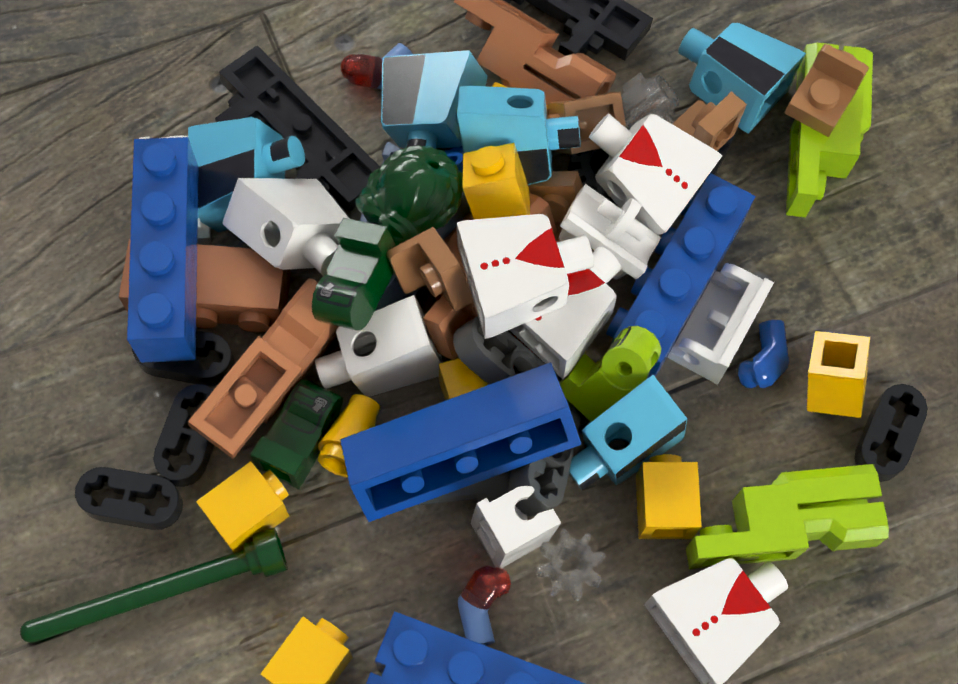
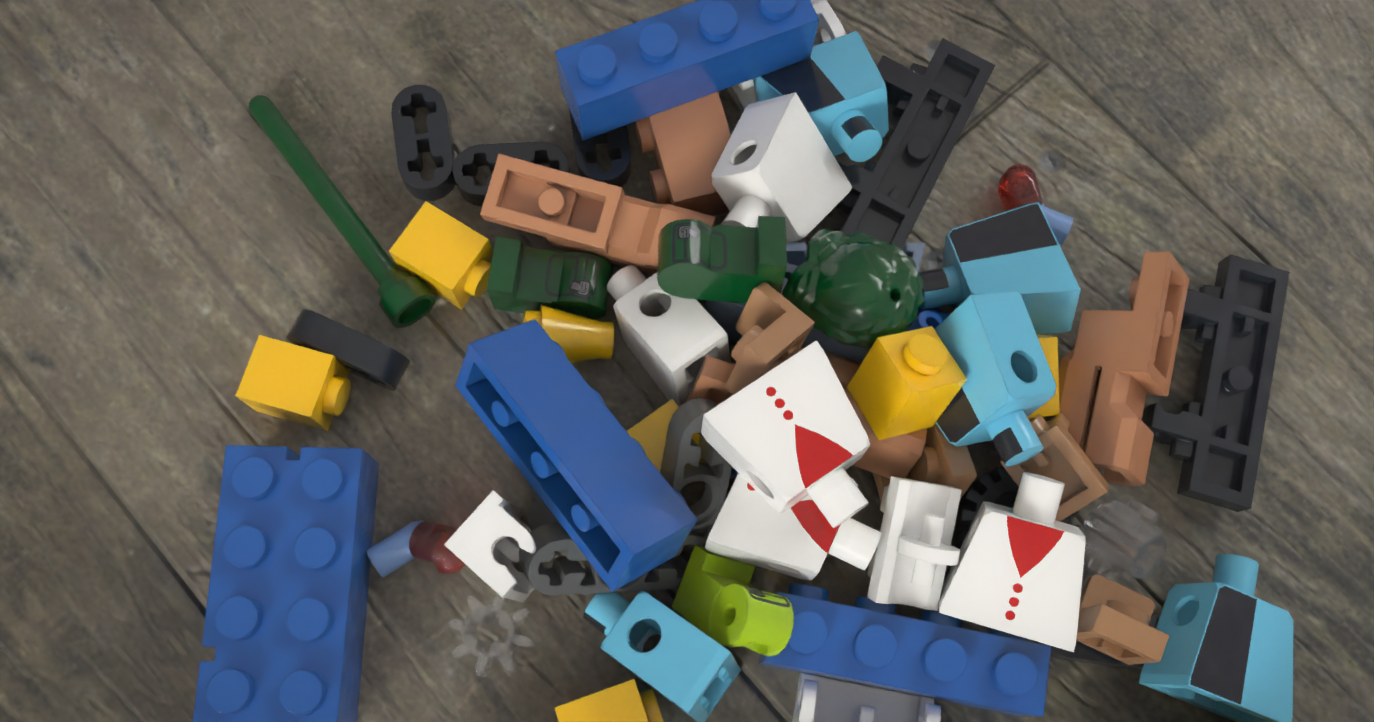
camera: 70 degrees right, 5 degrees up
(303, 600) = (354, 350): none -> black beam

